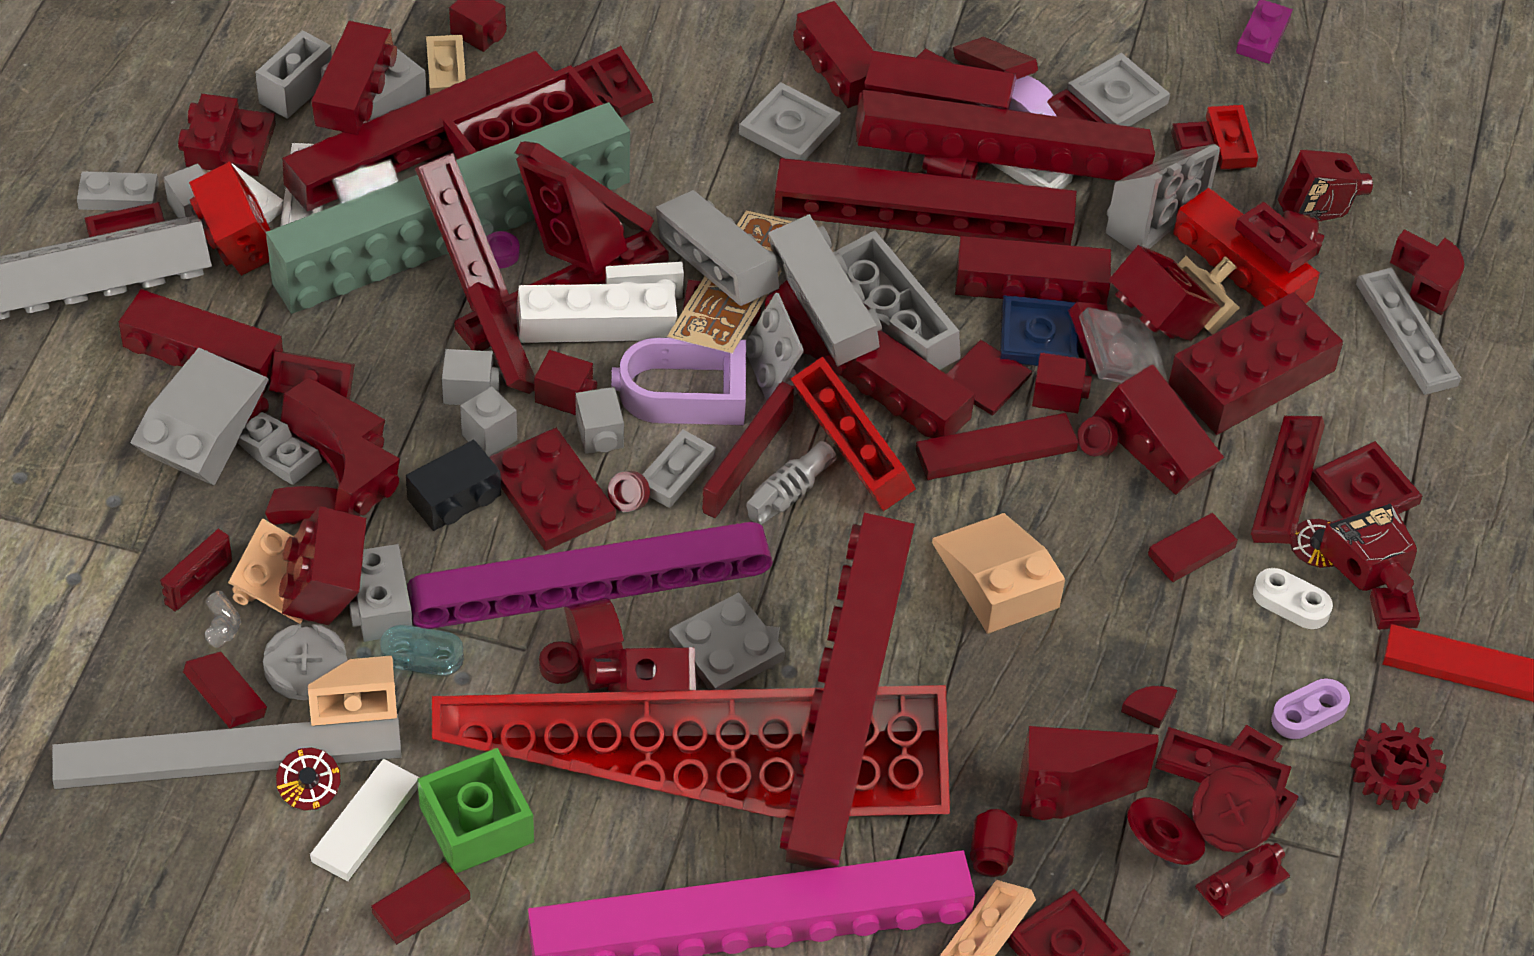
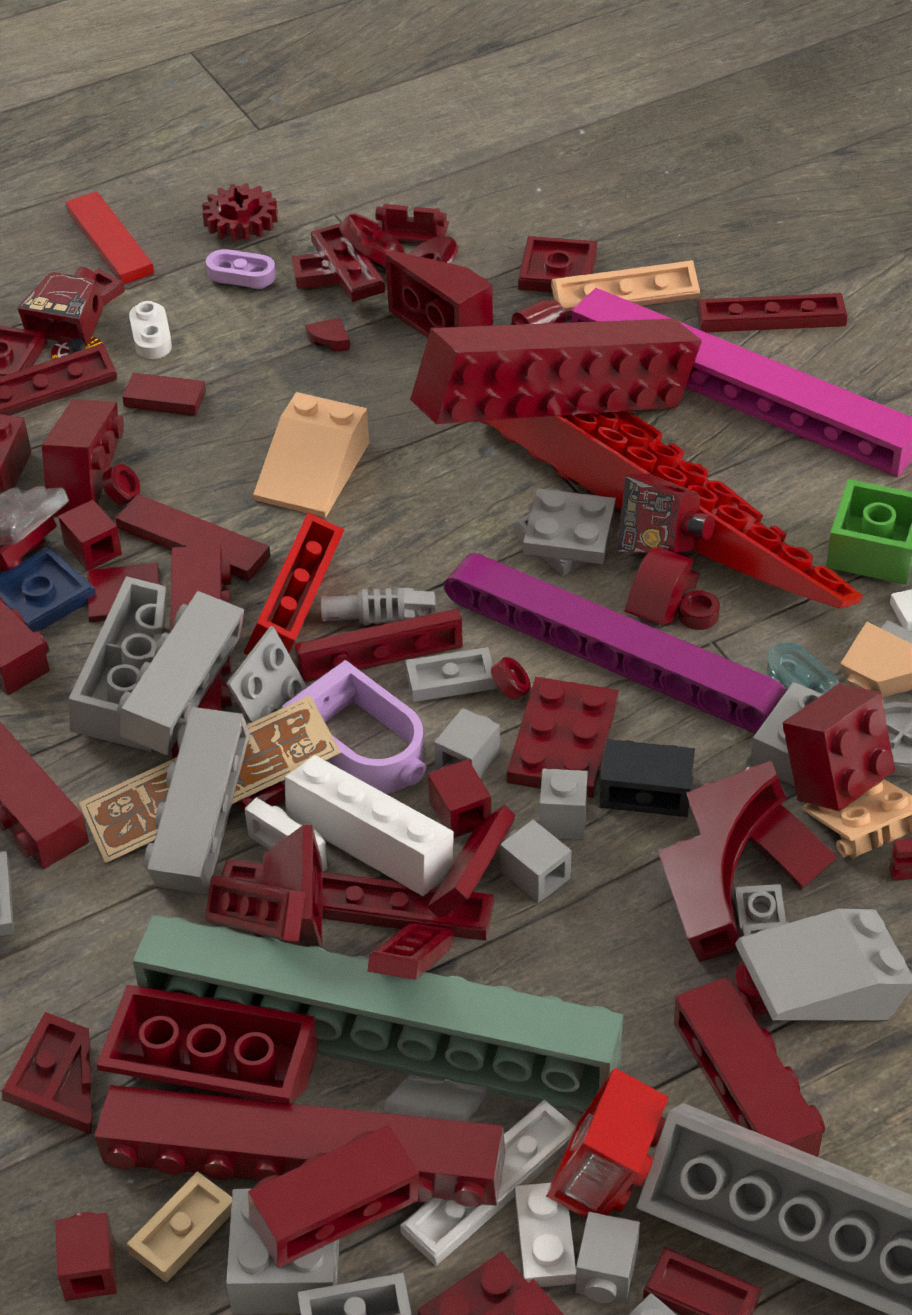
camera: 130 degrees left, 5 degrees down
(293, 368) = (667, 955): dark red plate -> none

